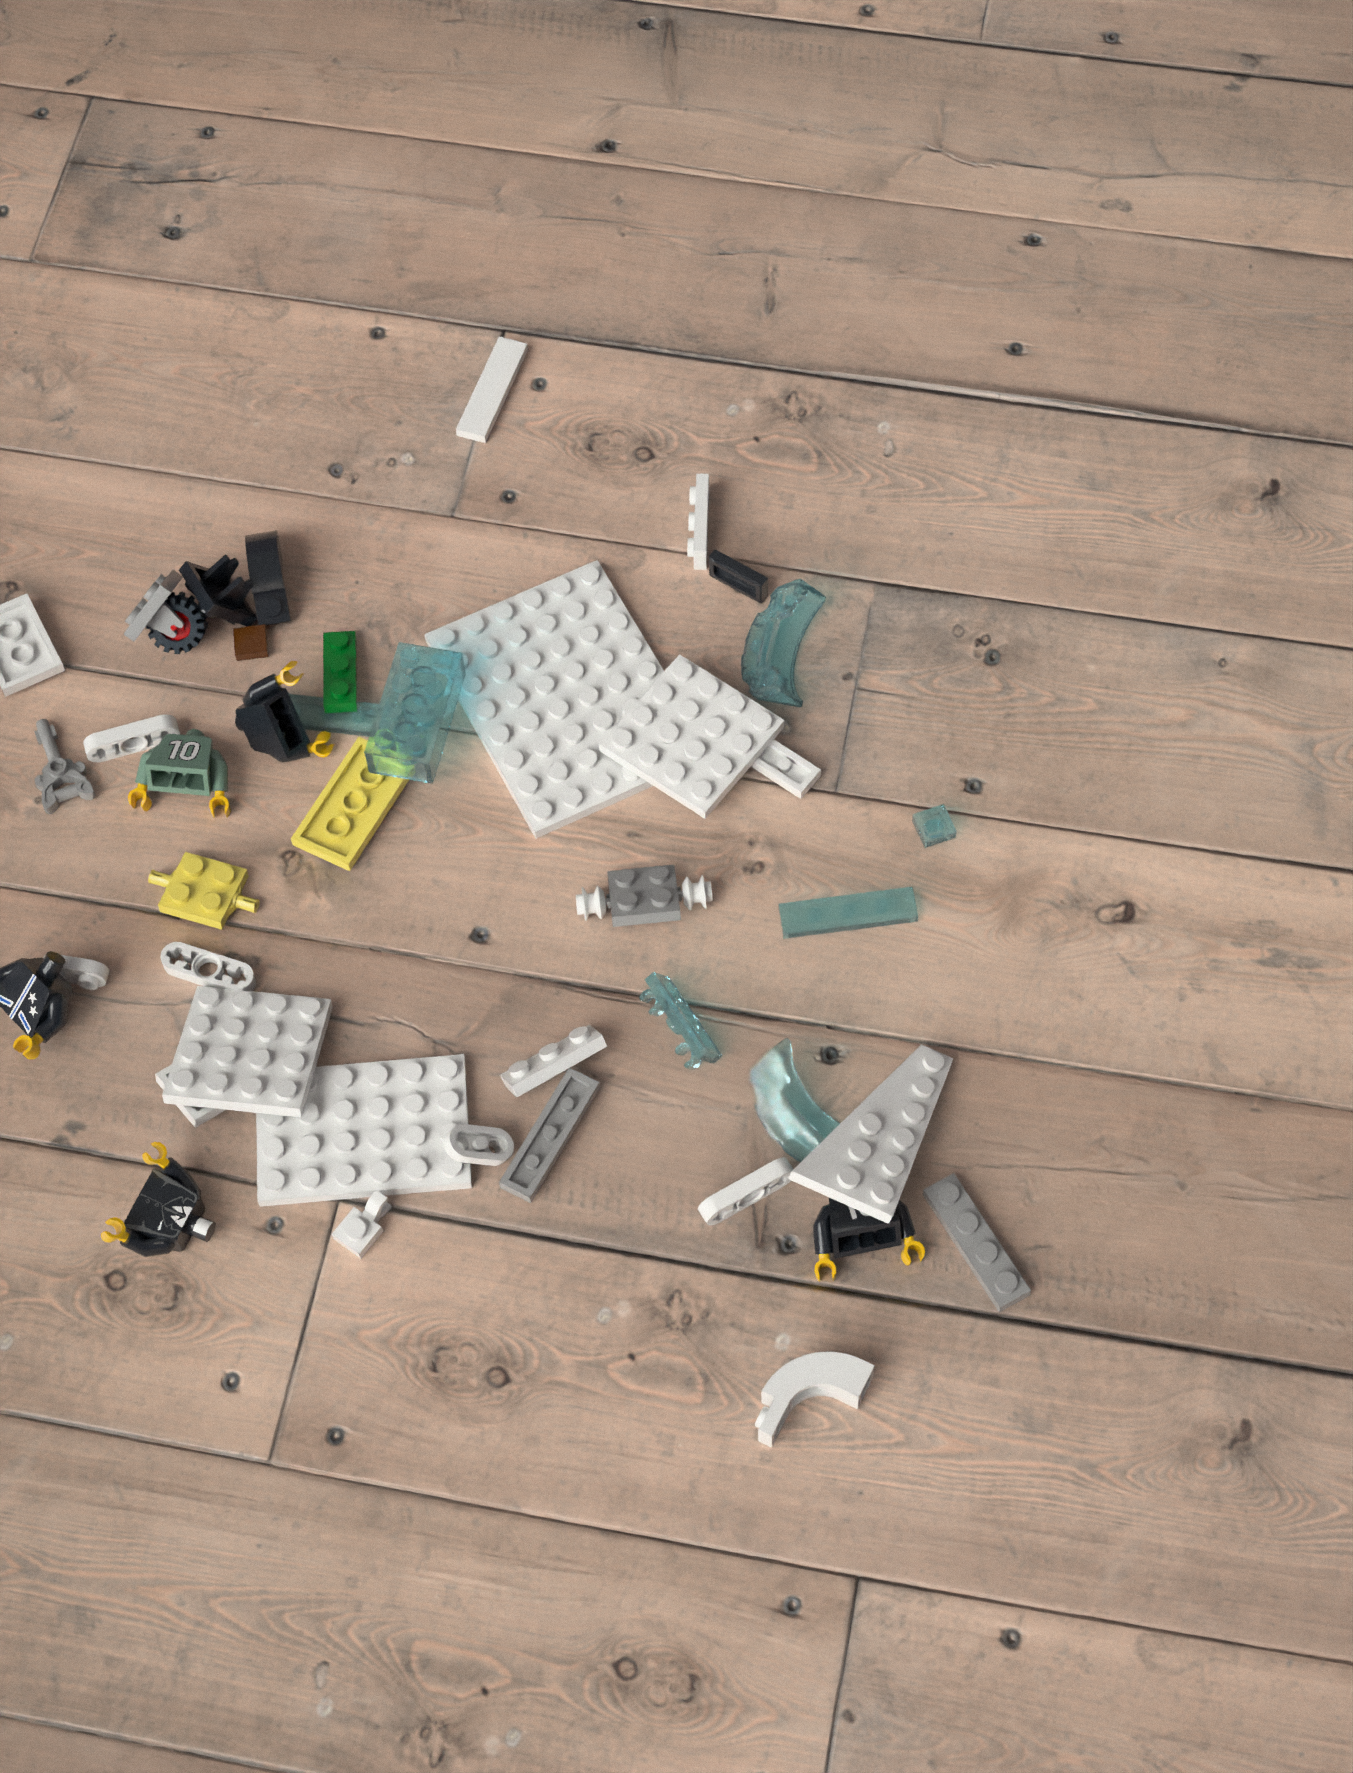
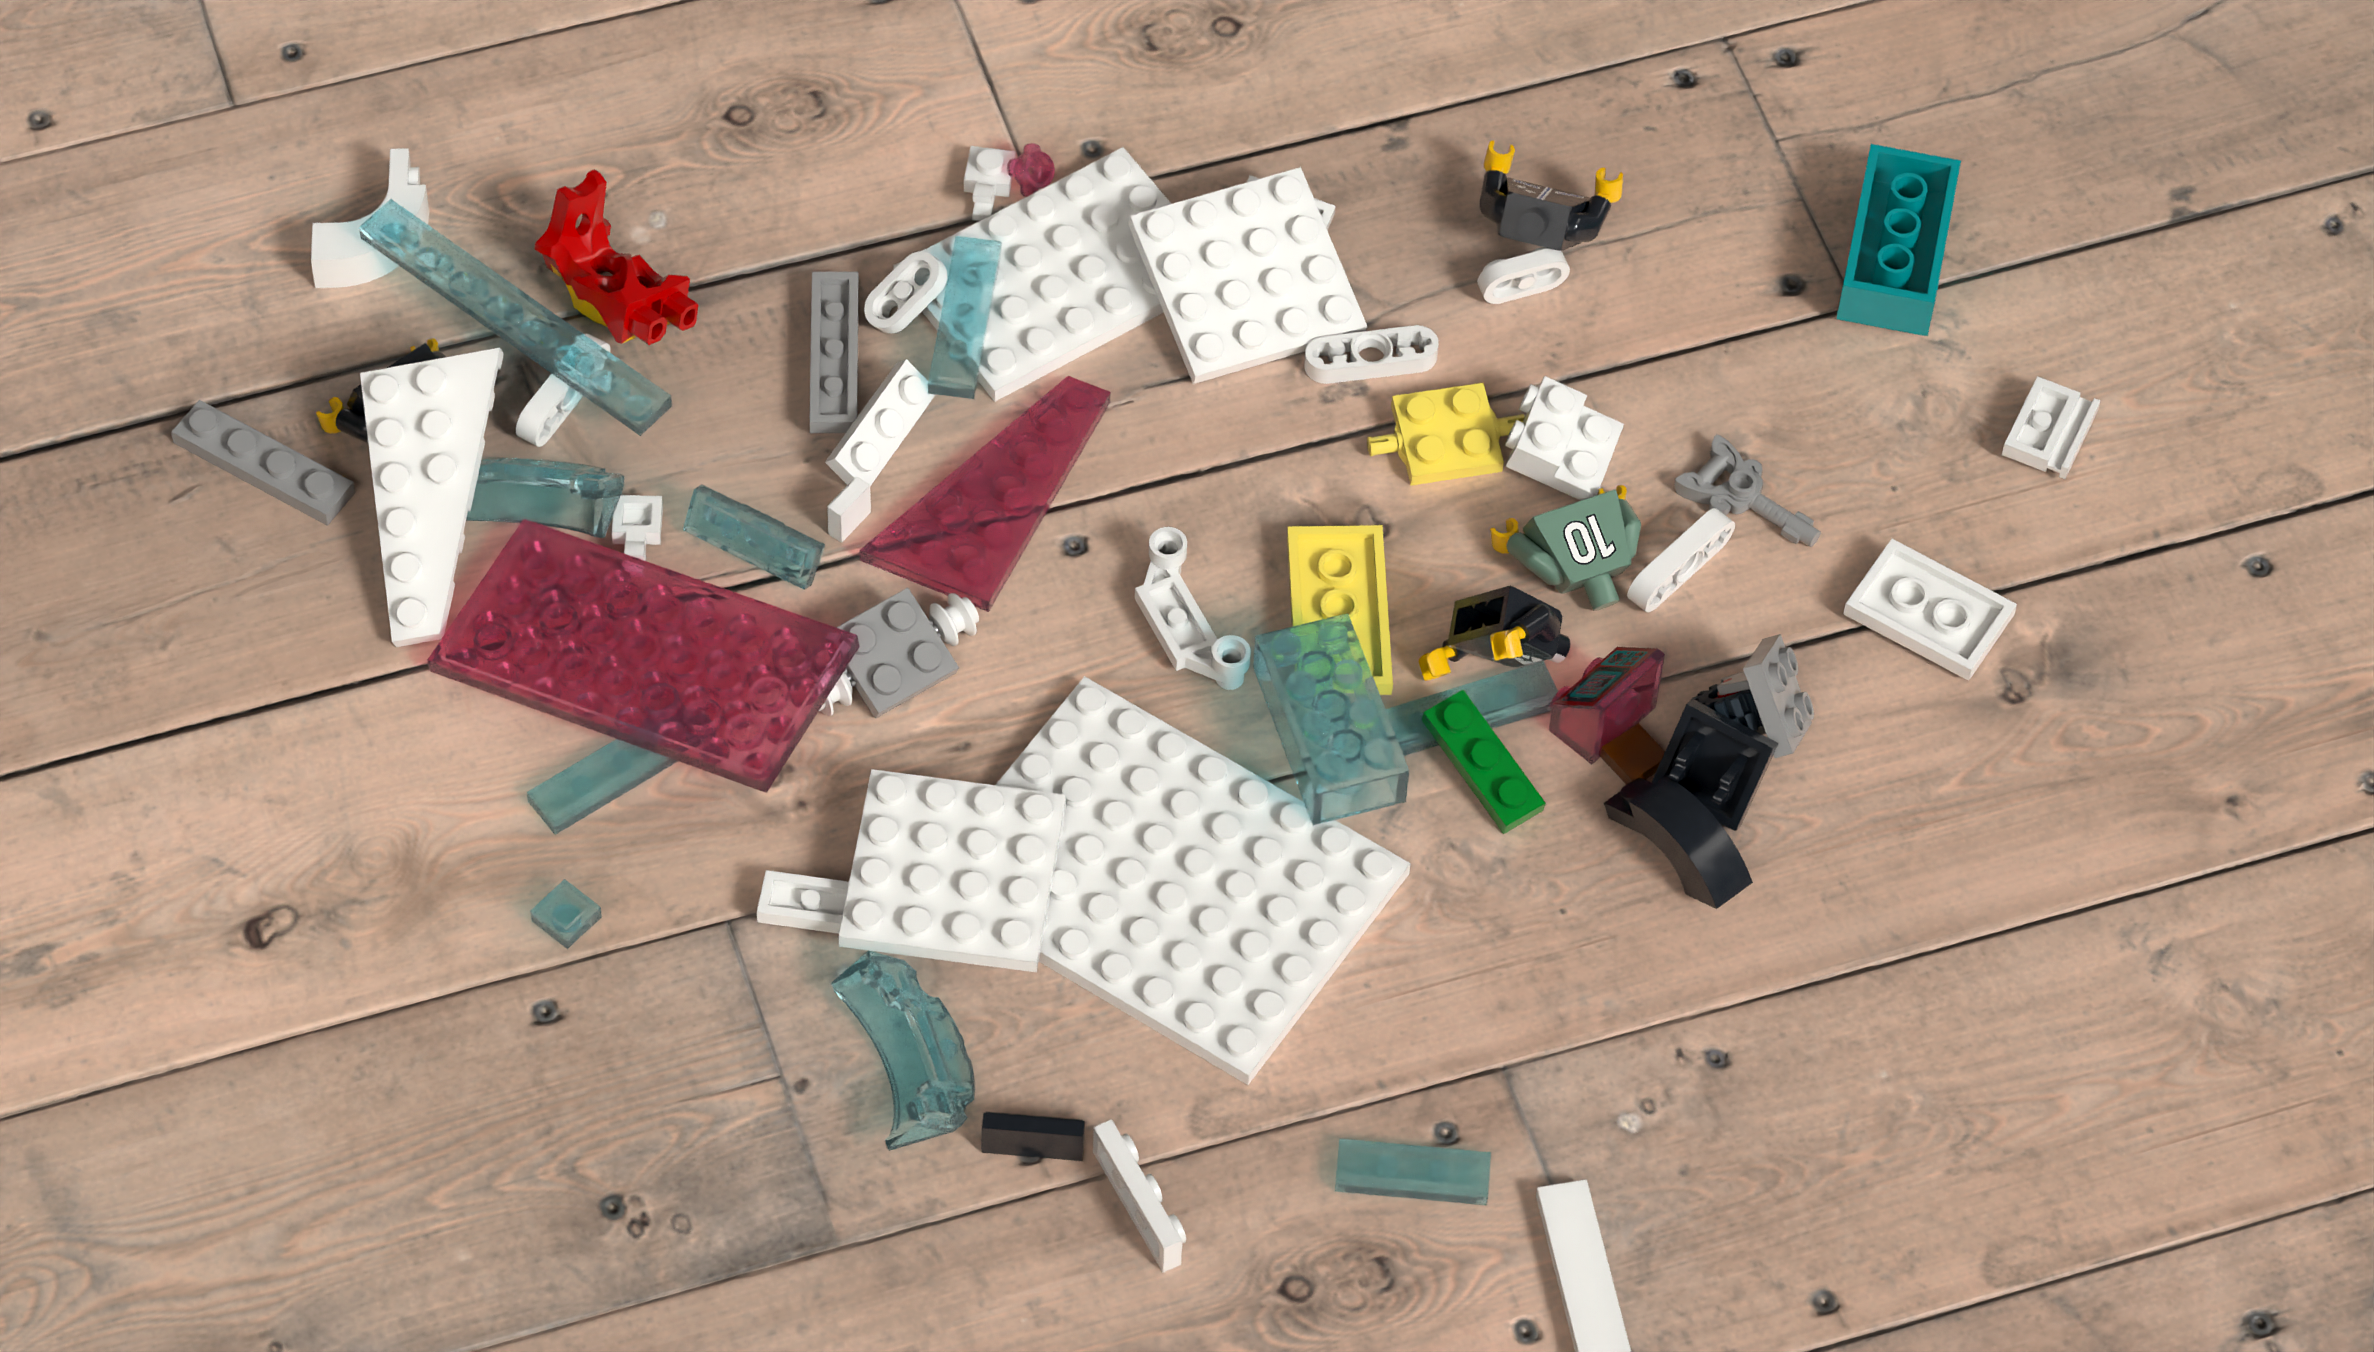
camera: 145 degrees right, 5 degrees down
(141, 844) = (1562, 440): none -> white plate
(164, 1212) = (1215, 82): black torso -> none
(241, 659) = (1607, 699): none -> clear pink slope
(330, 1211) = (1041, 169): none -> clear pink plate
(451, 1105) = (964, 317): none -> clear light blue tile
(454, 840) = (1179, 620): none -> white plate
(518, 979) = (986, 511): none -> clear pink wing
(542, 479) = (1413, 1172): none -> clear light blue tile
(610, 1009) = (849, 509): none -> white tile
(661, 1224) = (635, 297): none -> red hips
(746, 1059) = (637, 523): none -> white plate
(760, 1237) = (516, 317): none -> clear light blue plate
(802, 958) = (644, 654): none -> clear pink plate

